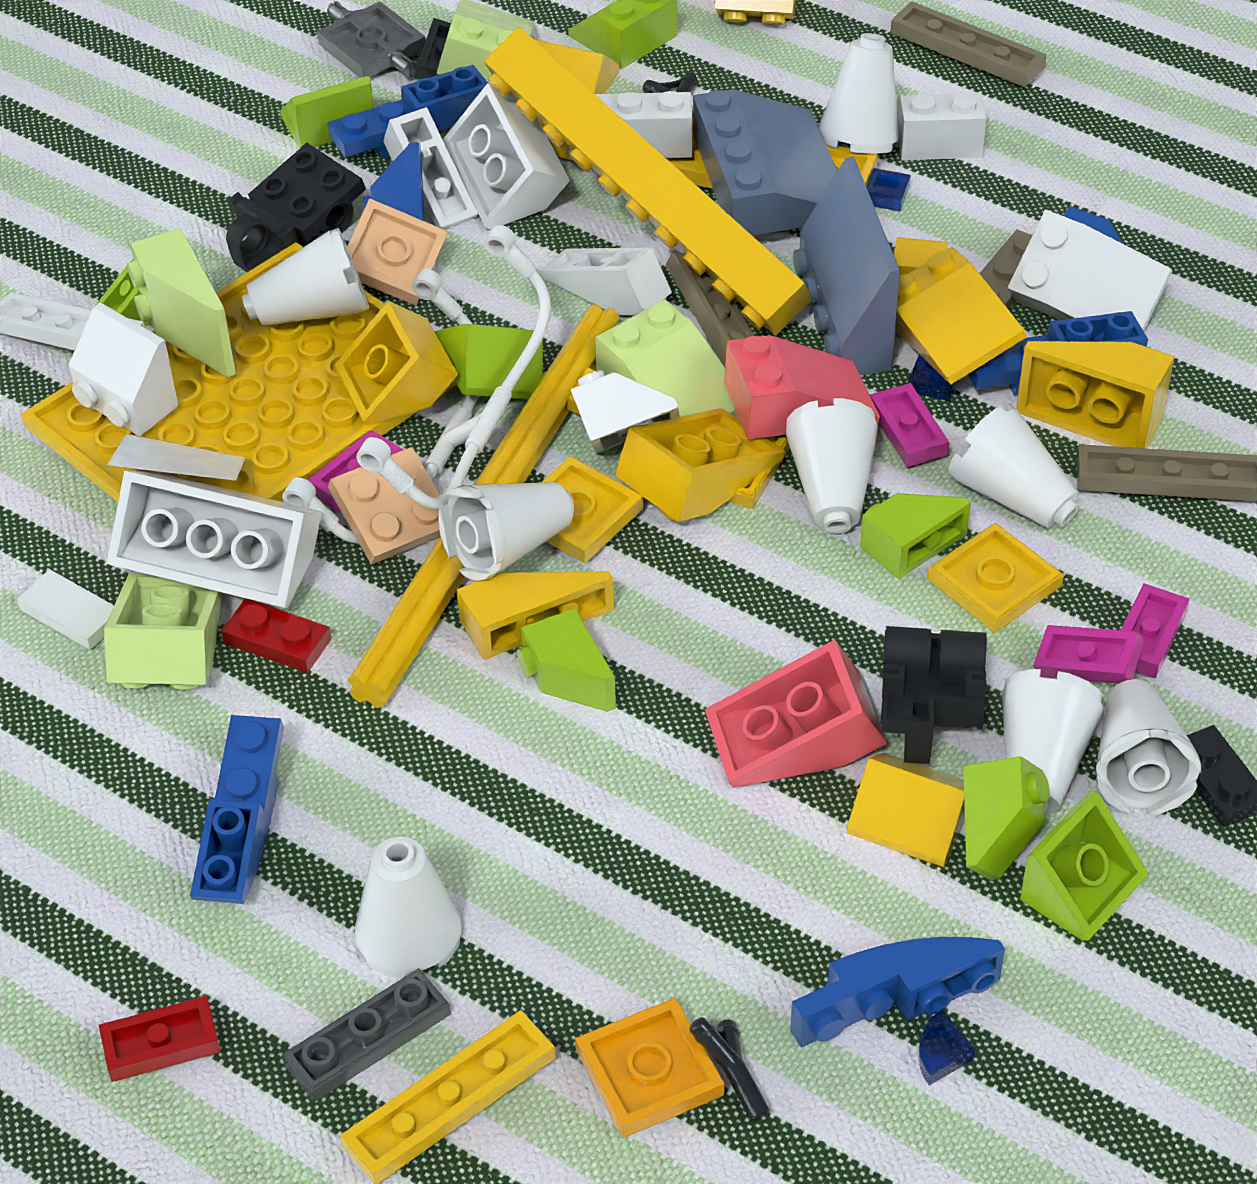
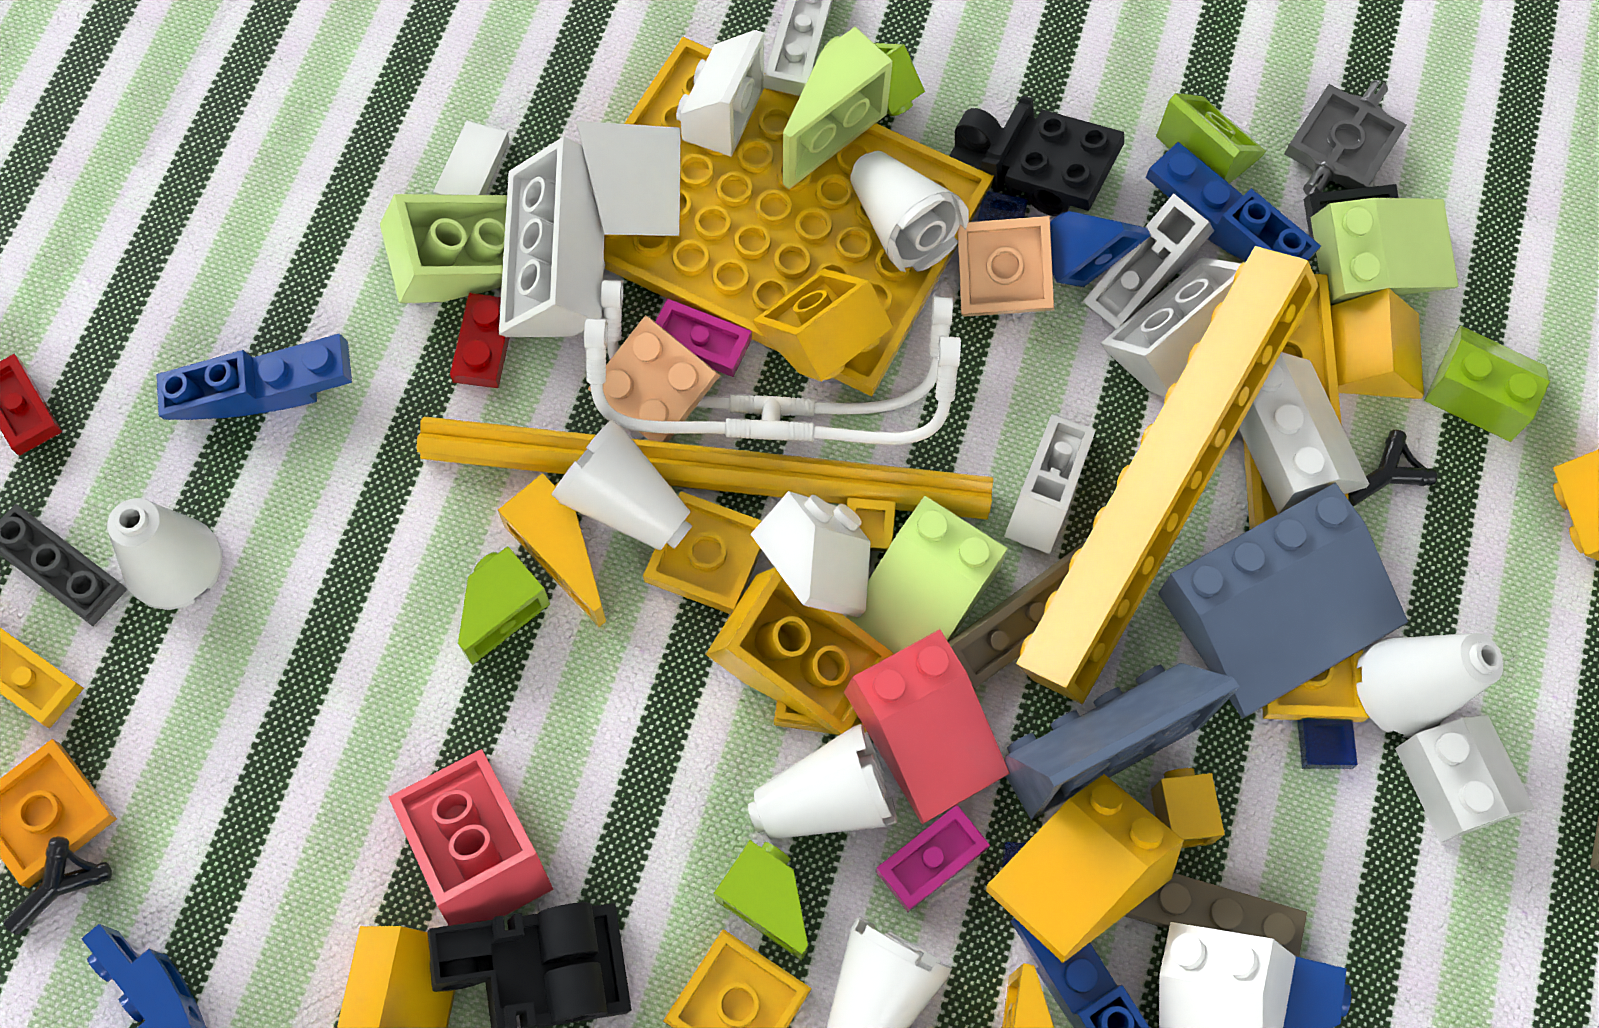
camera: 70 degrees right, 20 degrees up
(487, 355) = (876, 397): lime slope -> none

